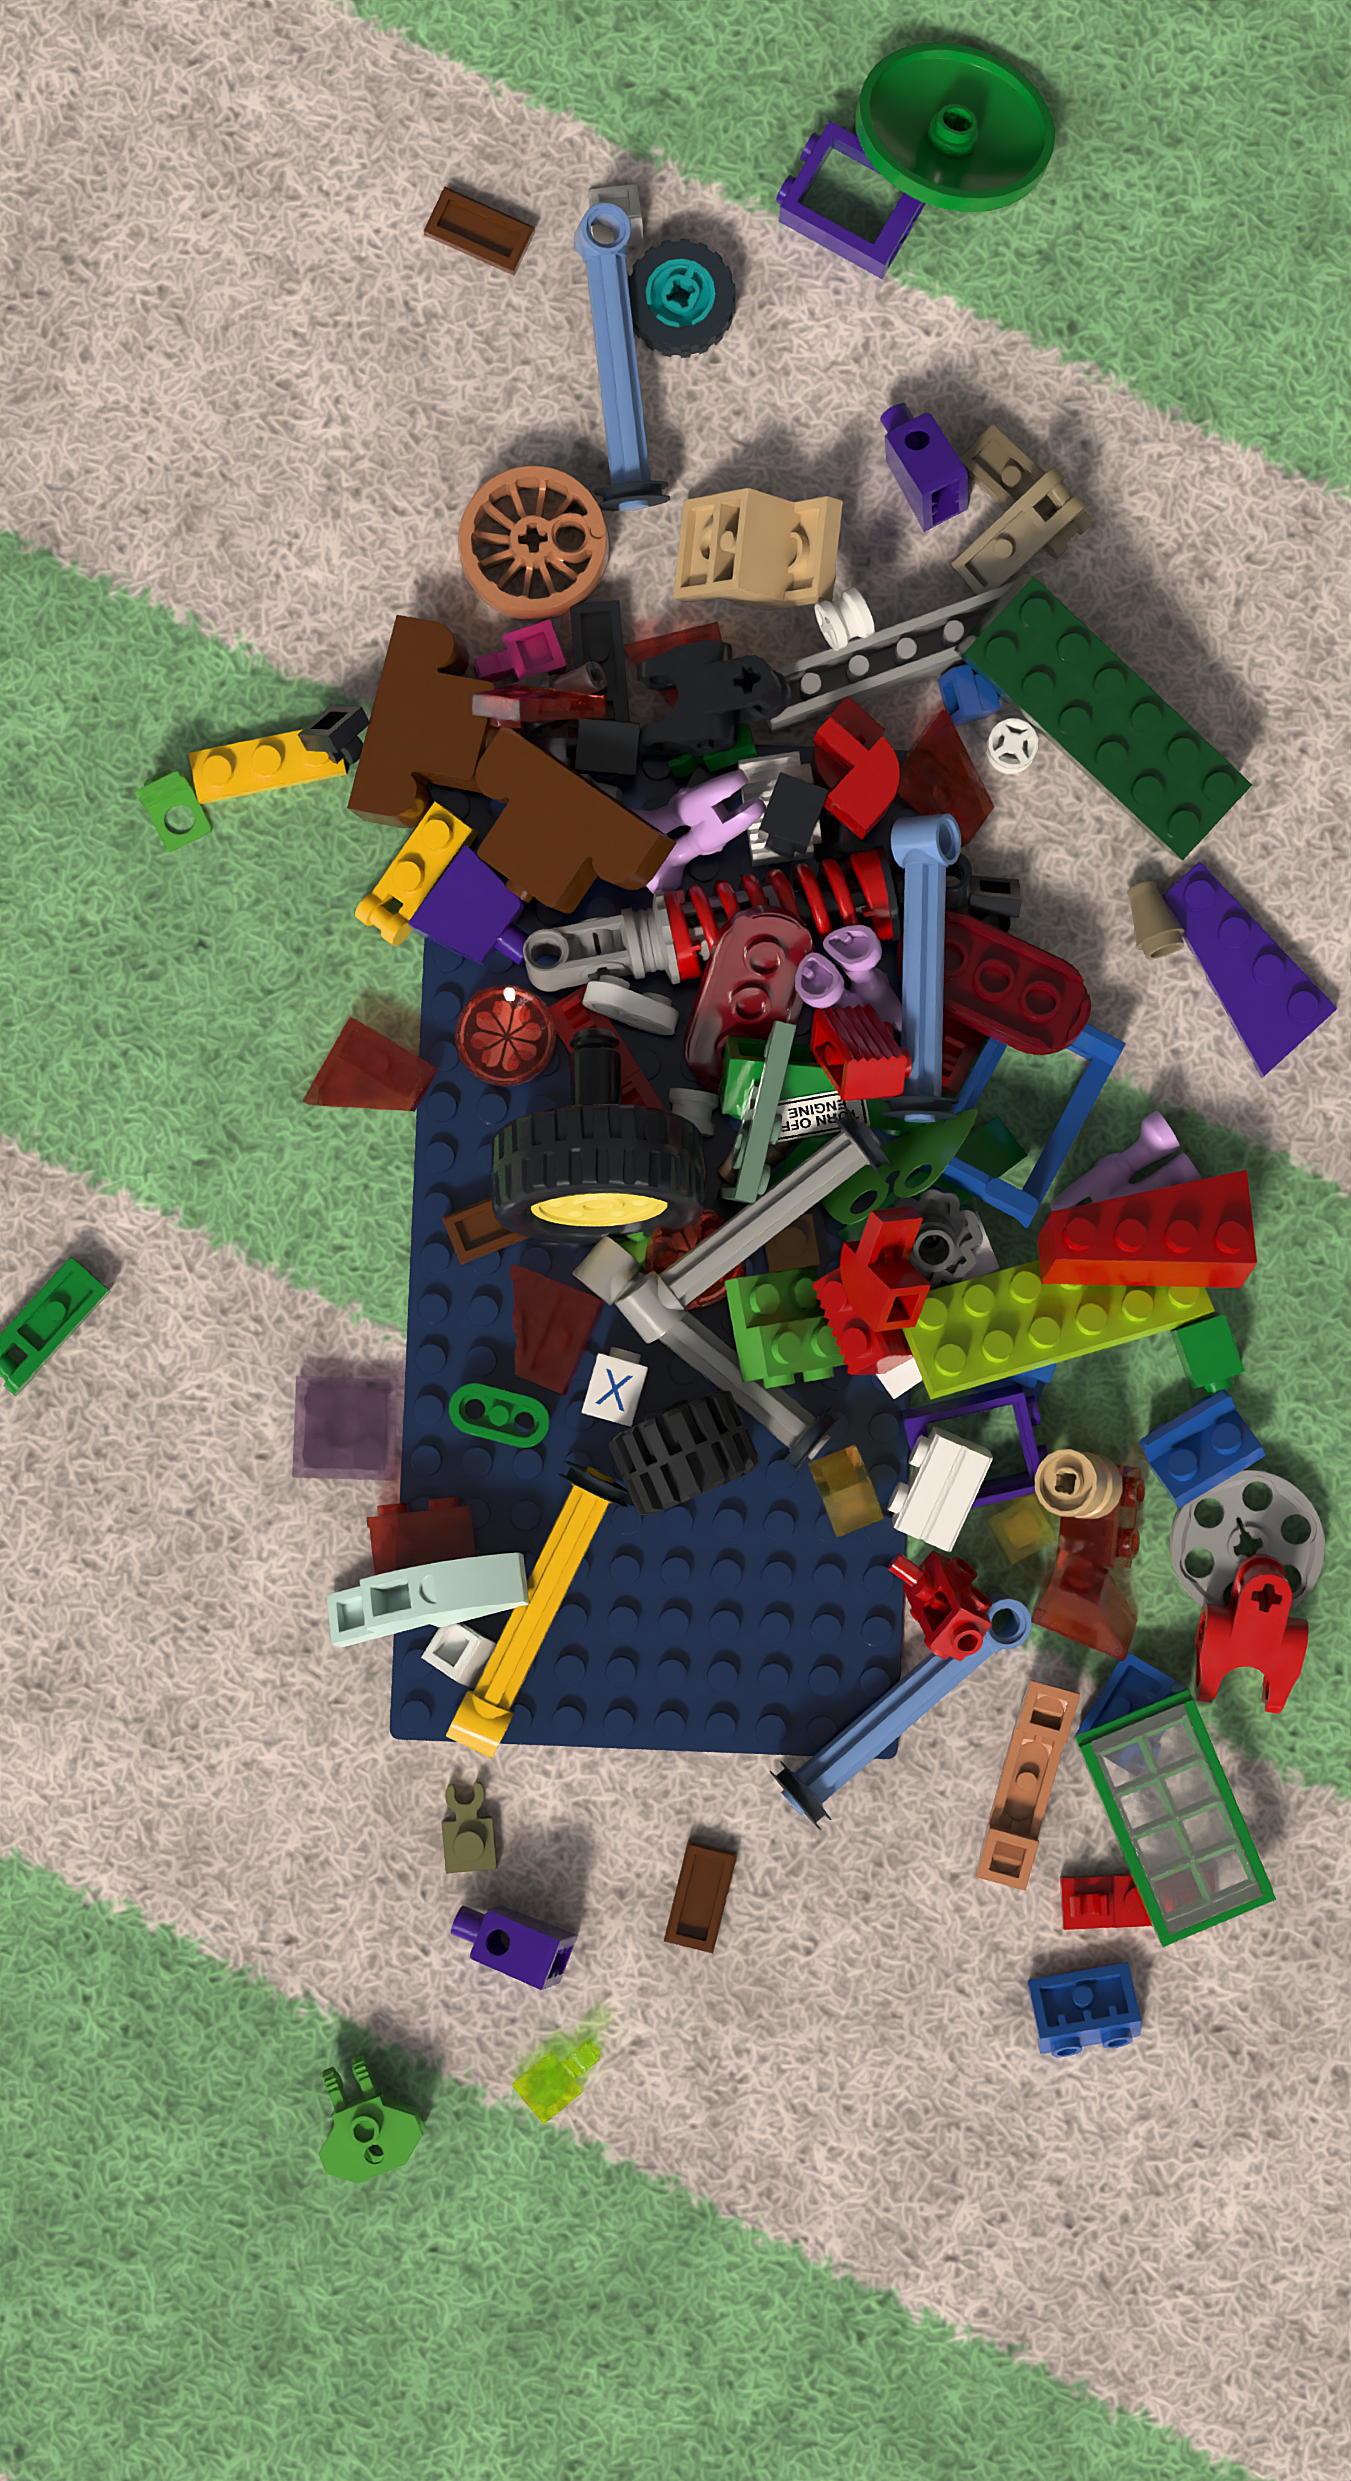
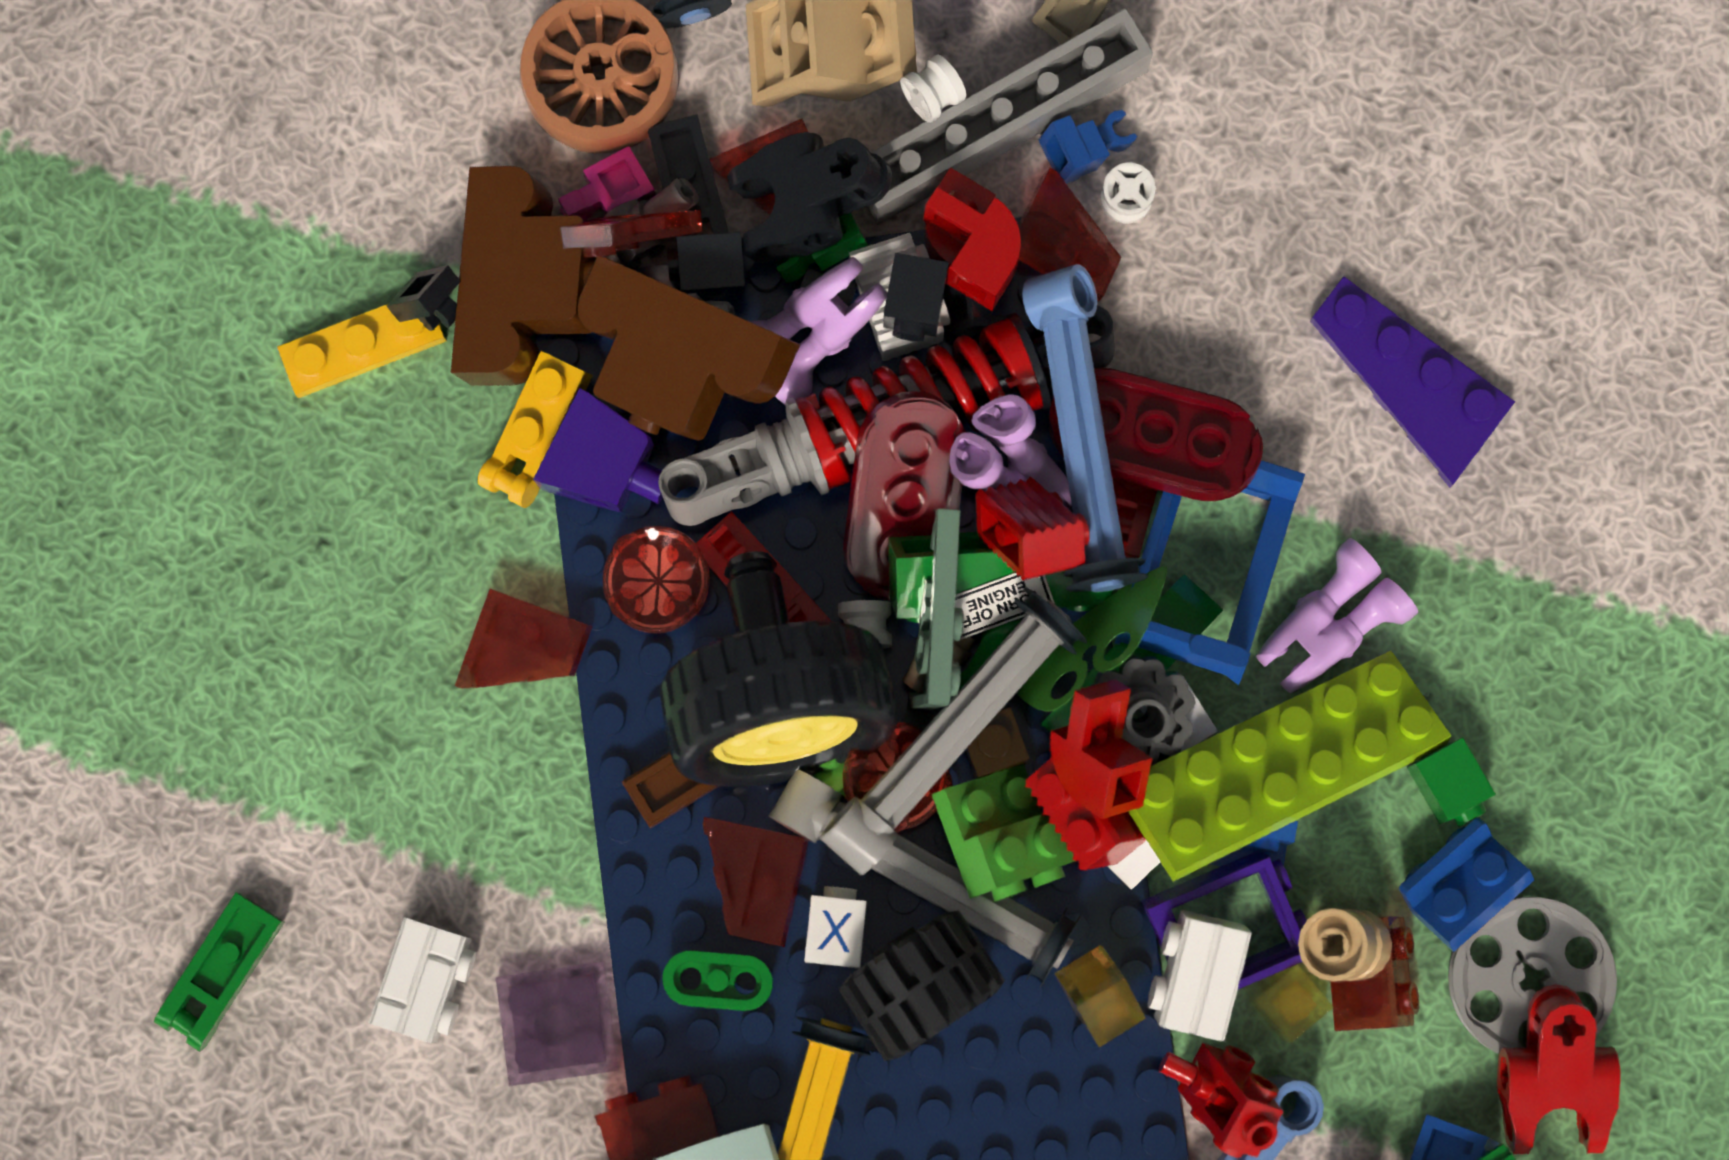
camera: 10 degrees left, 5 degrees down
(167, 791) = (257, 392): bright green bracket -> none
(228, 1368) = (422, 981): none -> white brick
(646, 1011) = (795, 528): white plate -> none
(996, 898) = (1141, 349): black tile -> none
(1085, 1606) = (1374, 1074): clear red slope -> none
(1102, 716) = (1217, 142): dark green brick -> none
(1154, 922) = (1309, 347): dark tan cone -> none
(1158, 1237) = (1376, 670): red wedge -> none

